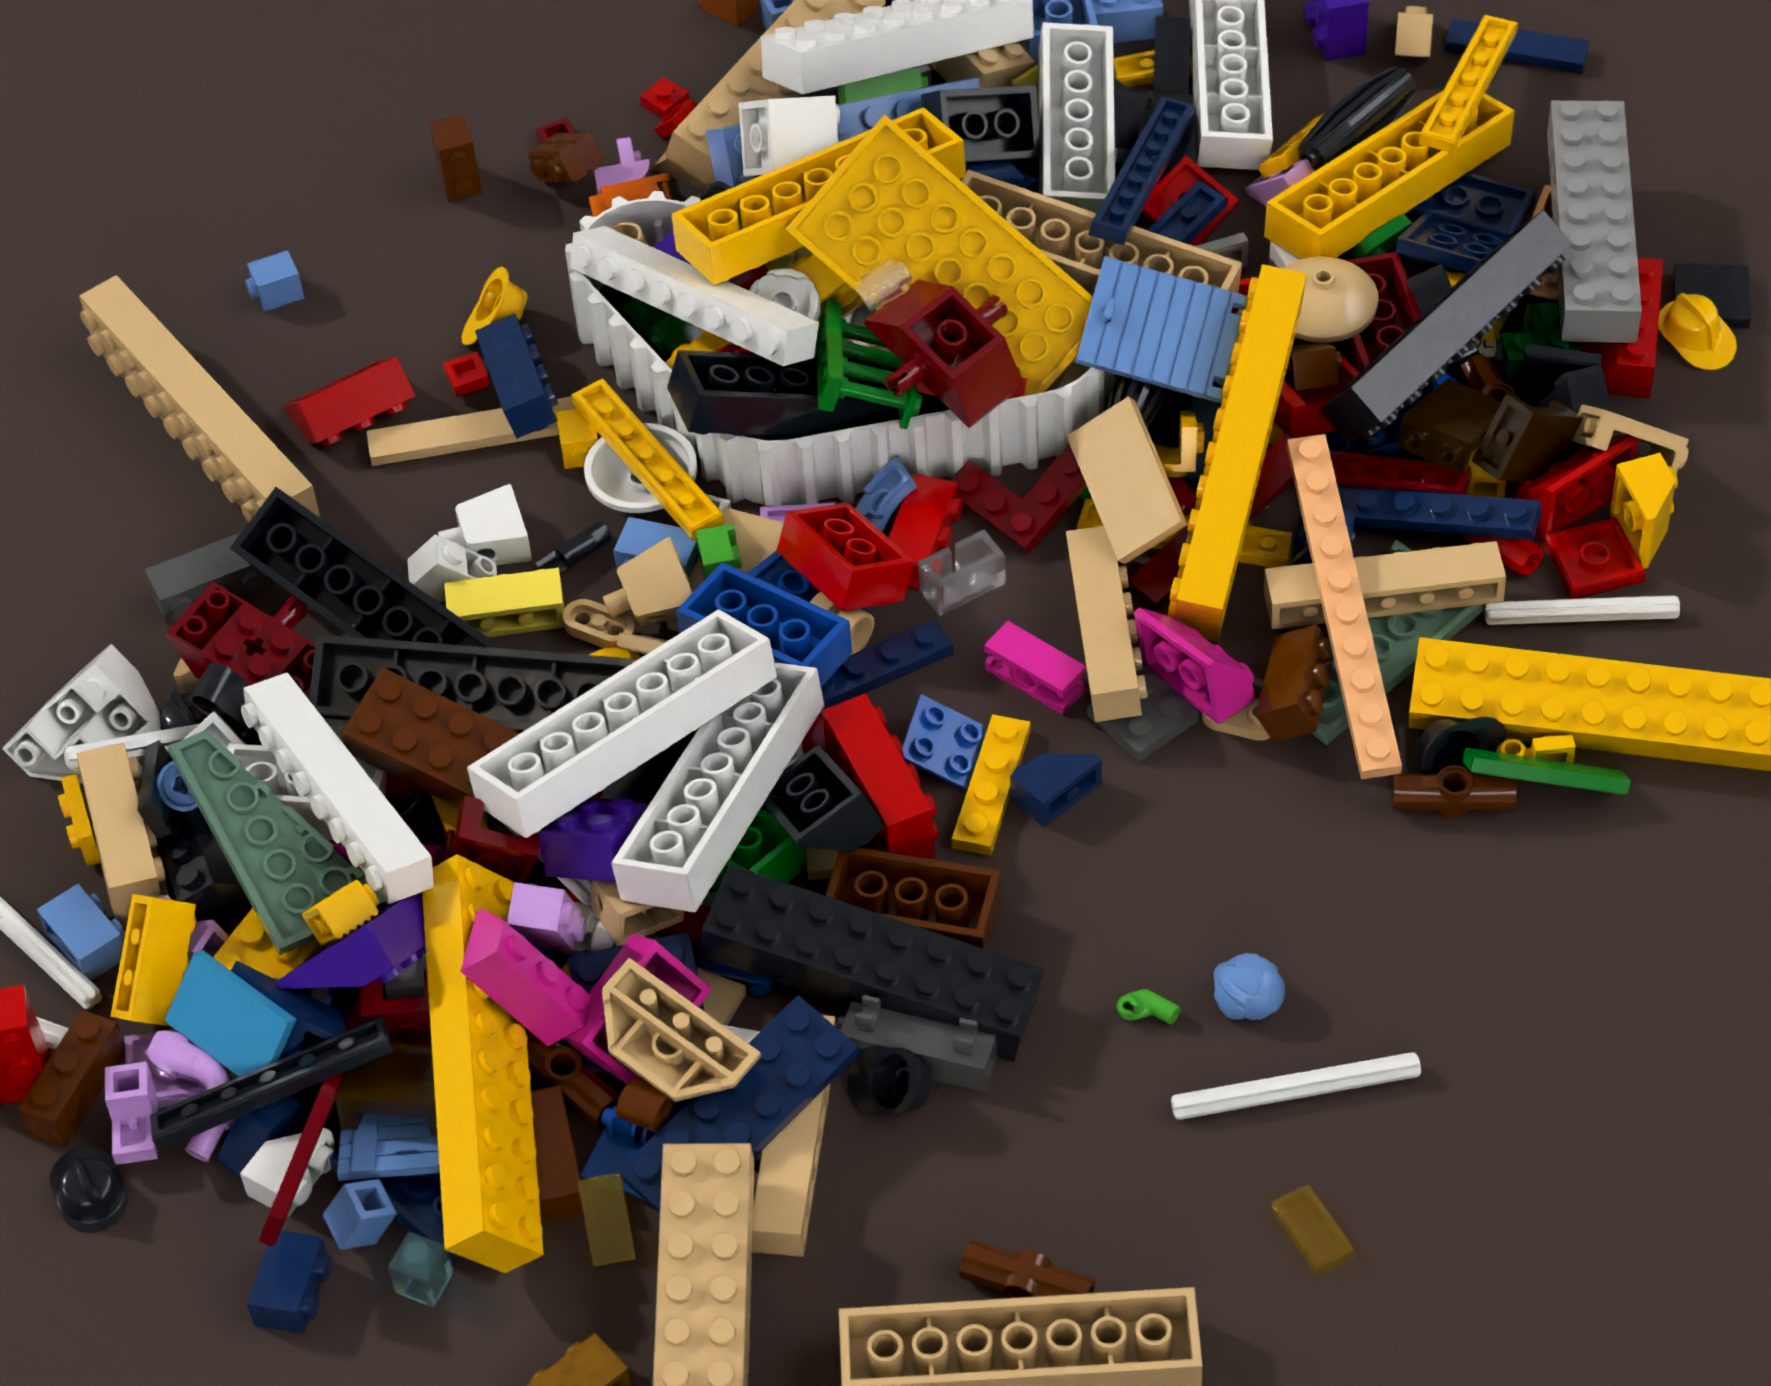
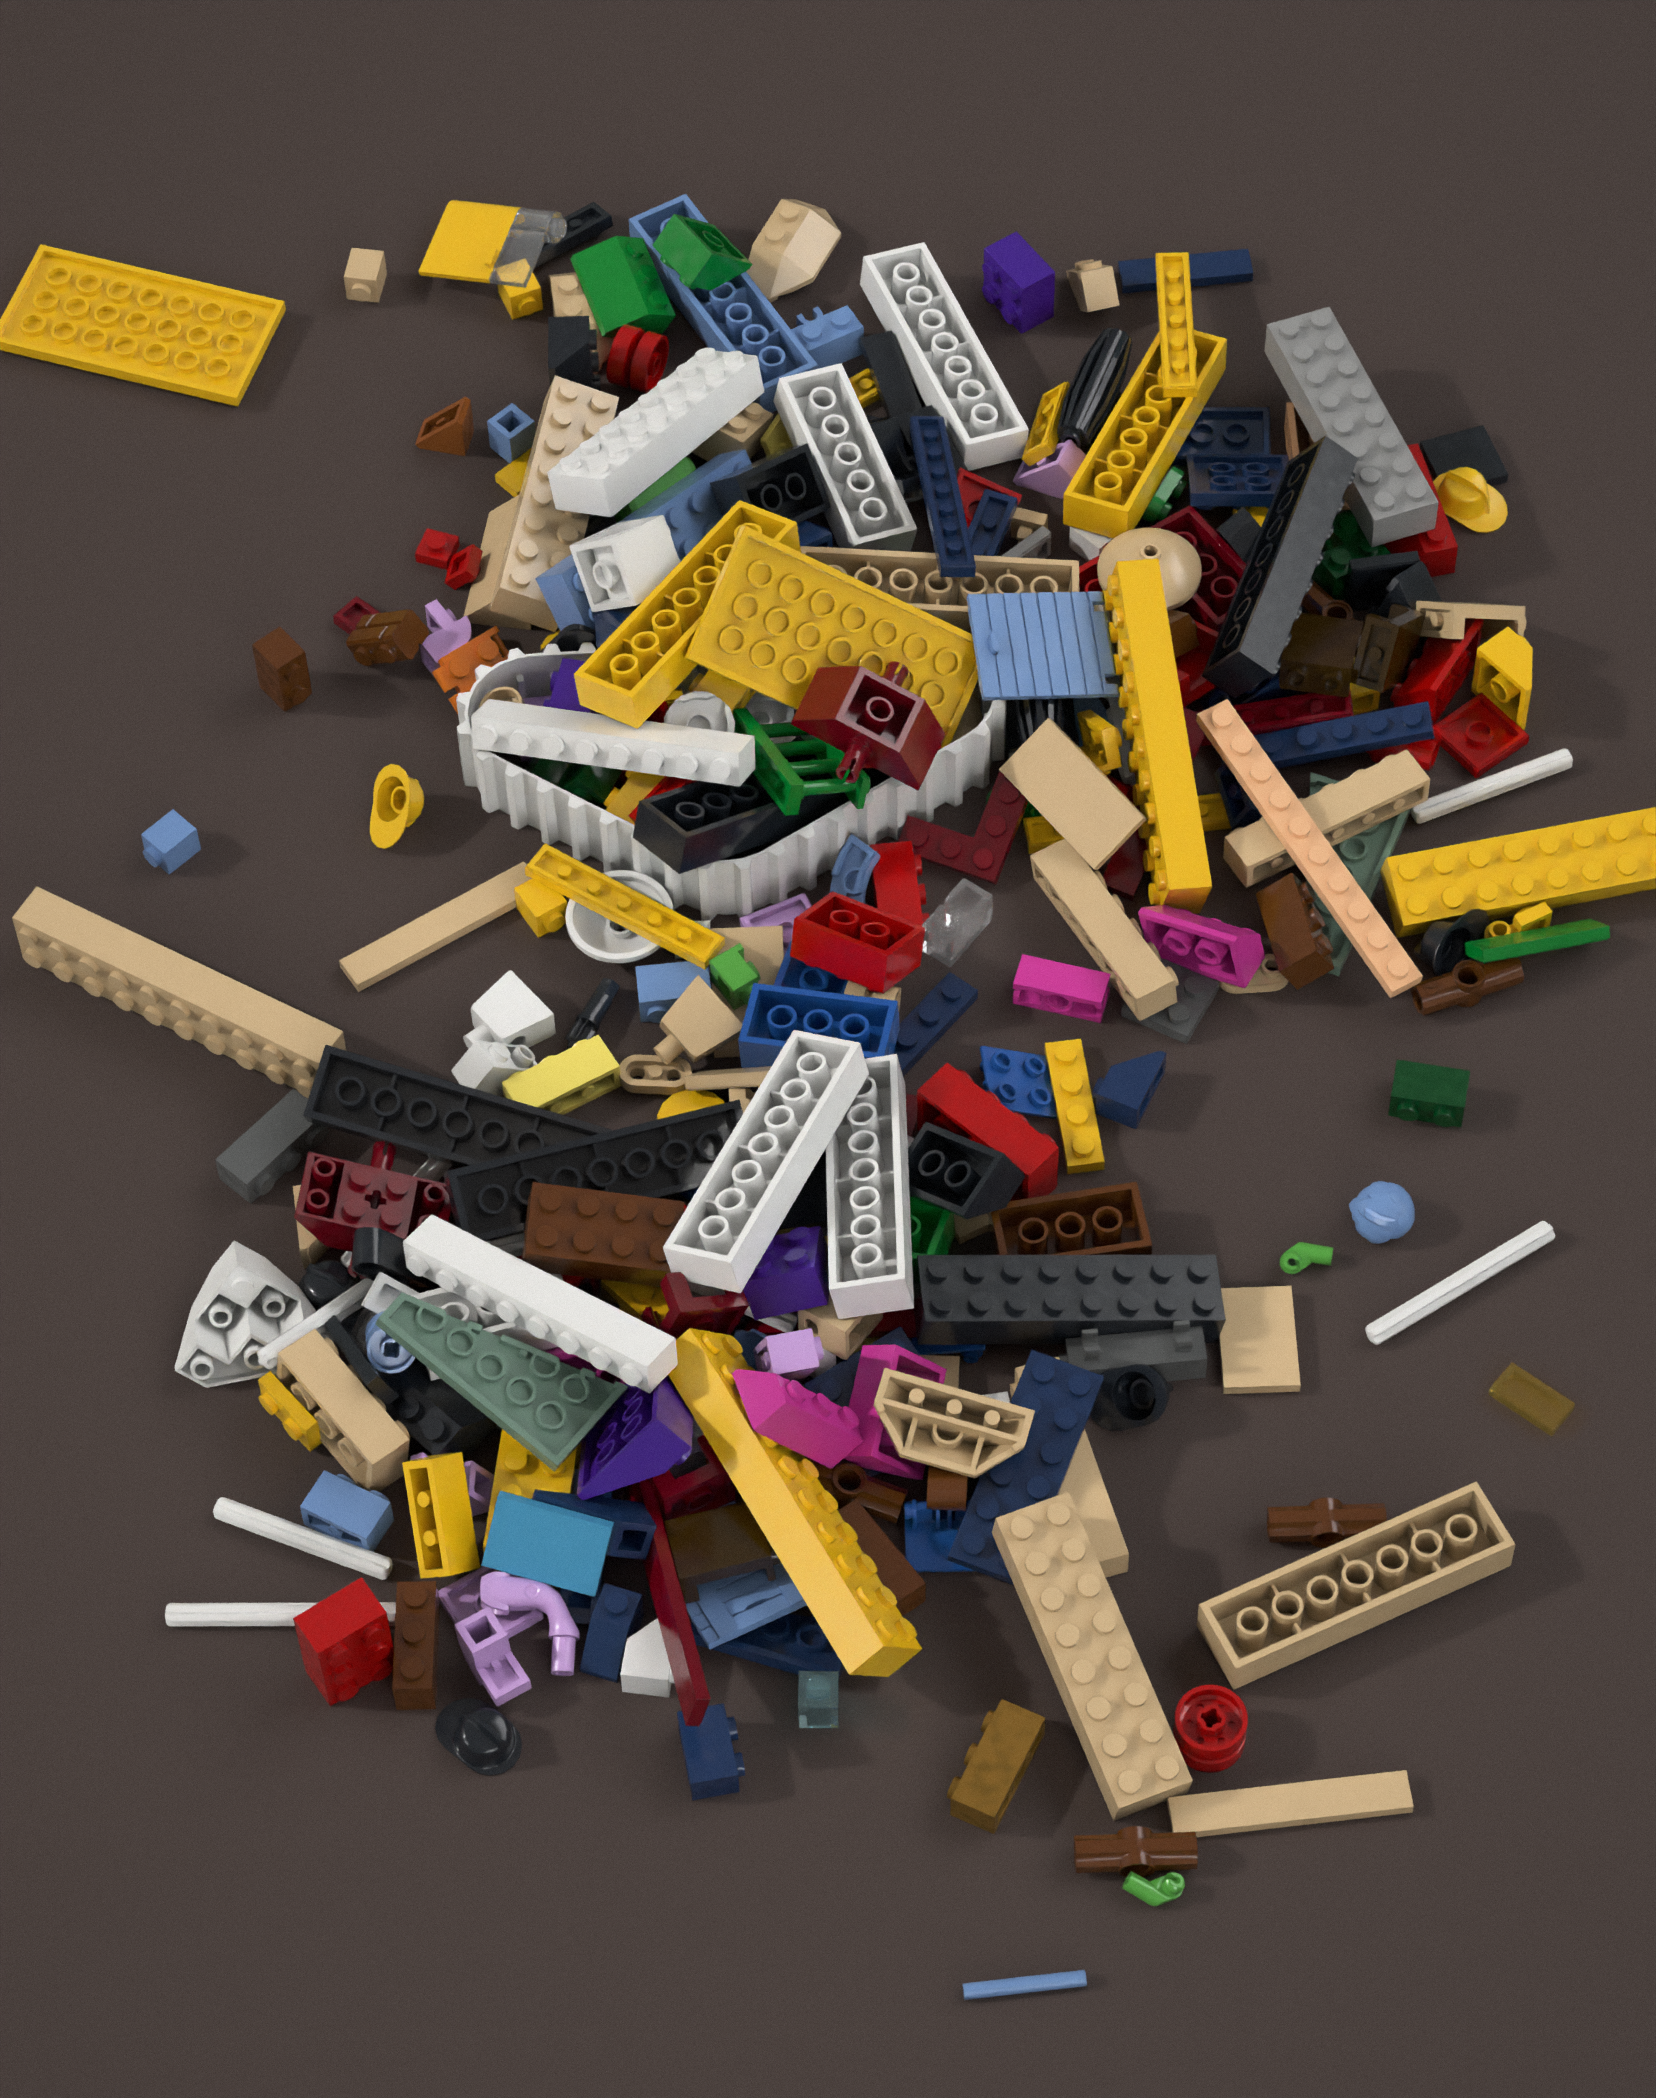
camera: 25 degrees left, 5 degrees up
(271, 1083) = (613, 1586): black tile -> none
(342, 912) = (607, 1415): yellow brick -> none
(351, 401) = (308, 936): red slope -> none
(359, 1214) = (742, 1671): medium blue brick -> none
(466, 374) = (402, 876): red plate -> none
(518, 375) = (459, 864): dark blue brick -> none
(606, 1219) = (955, 1599): clear yellow tile -> none
(884, 284) = (793, 682): clear brick -> none
(1055, 1072) = (1259, 1341): none -> tan tile
(1230, 224) = (1027, 522): none -> tan tile
(1357, 887) = (1429, 1093): none -> dark green brick

